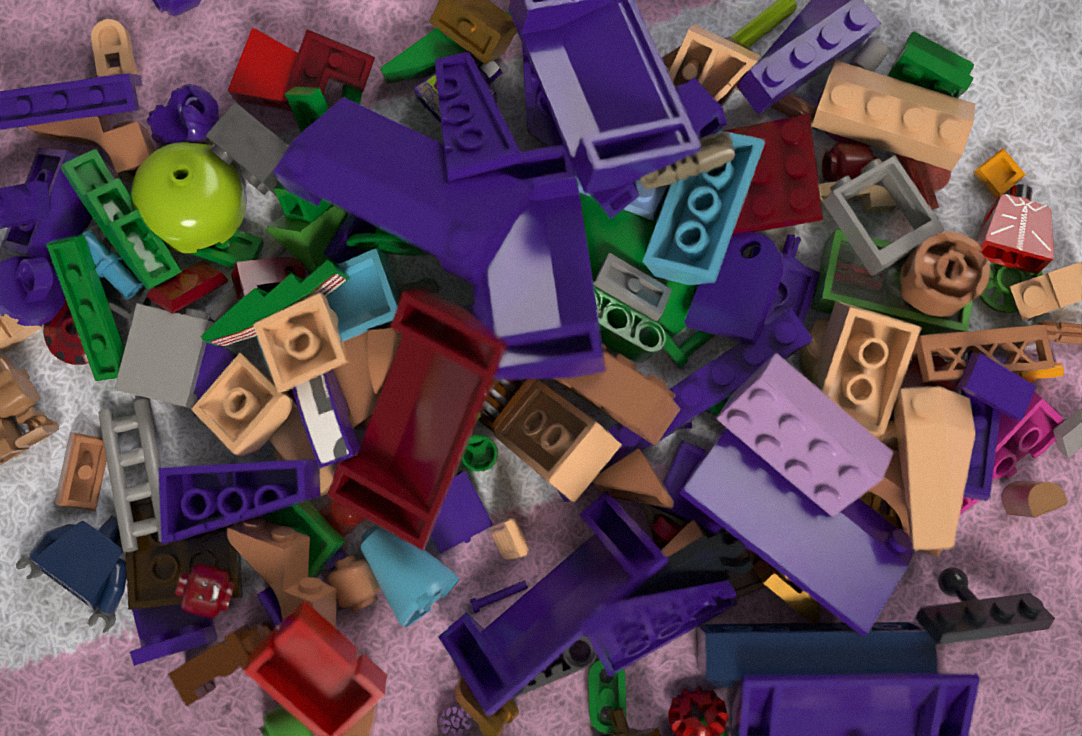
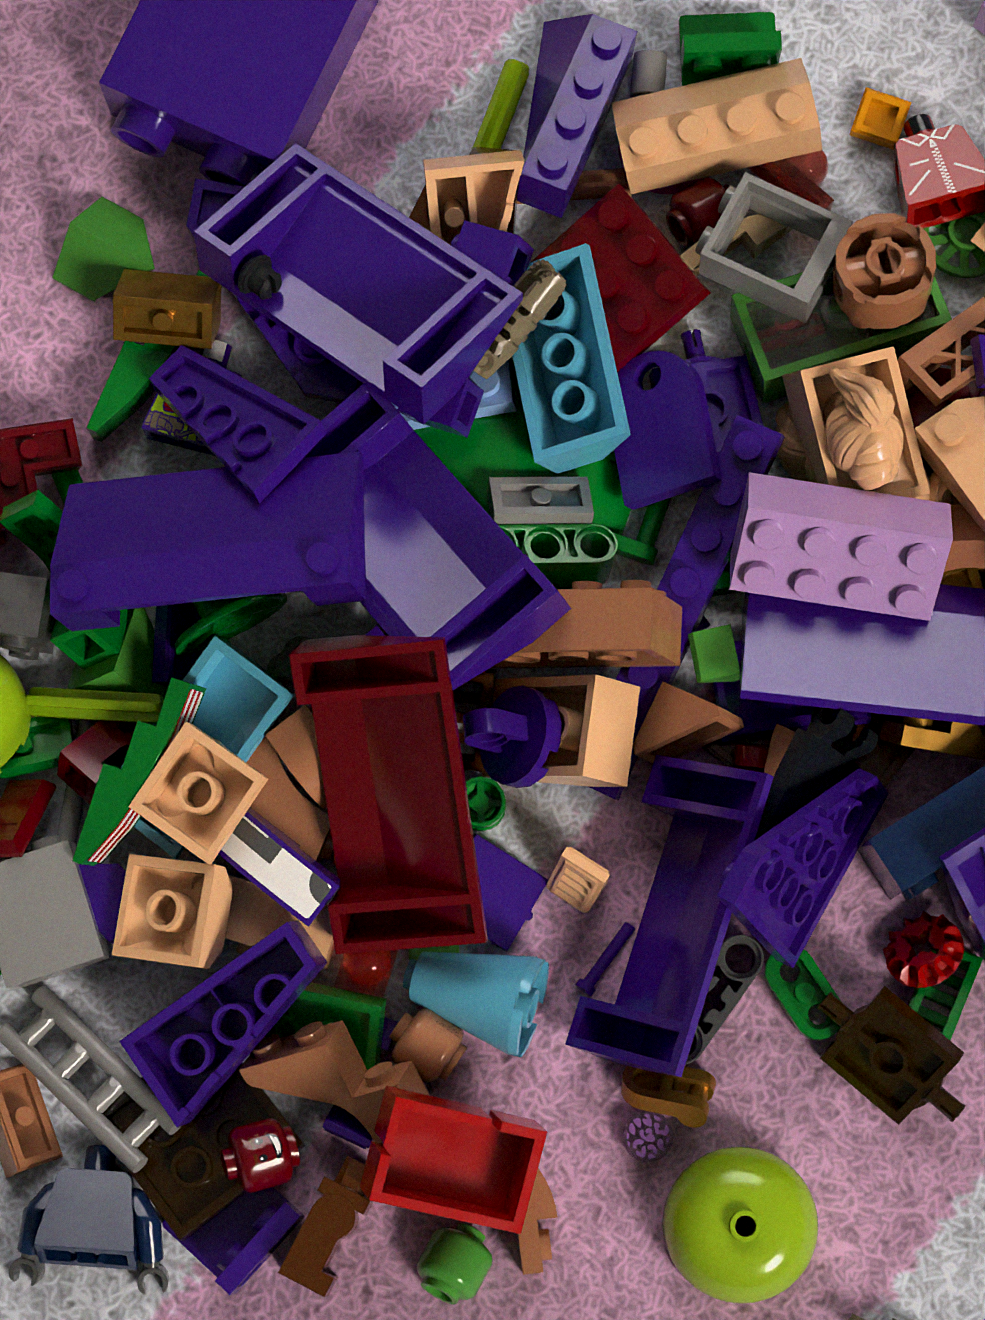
camera: 30 degrees left, 5 degrees down
(277, 245) = (94, 704): none -> lime axle
(525, 426) = (515, 735): none -> dark purple tile
(540, 35) = (259, 277): none -> black piece
(681, 451) = (714, 655): none -> bright green slope
(868, 370) = (863, 430): none -> light nougat hair

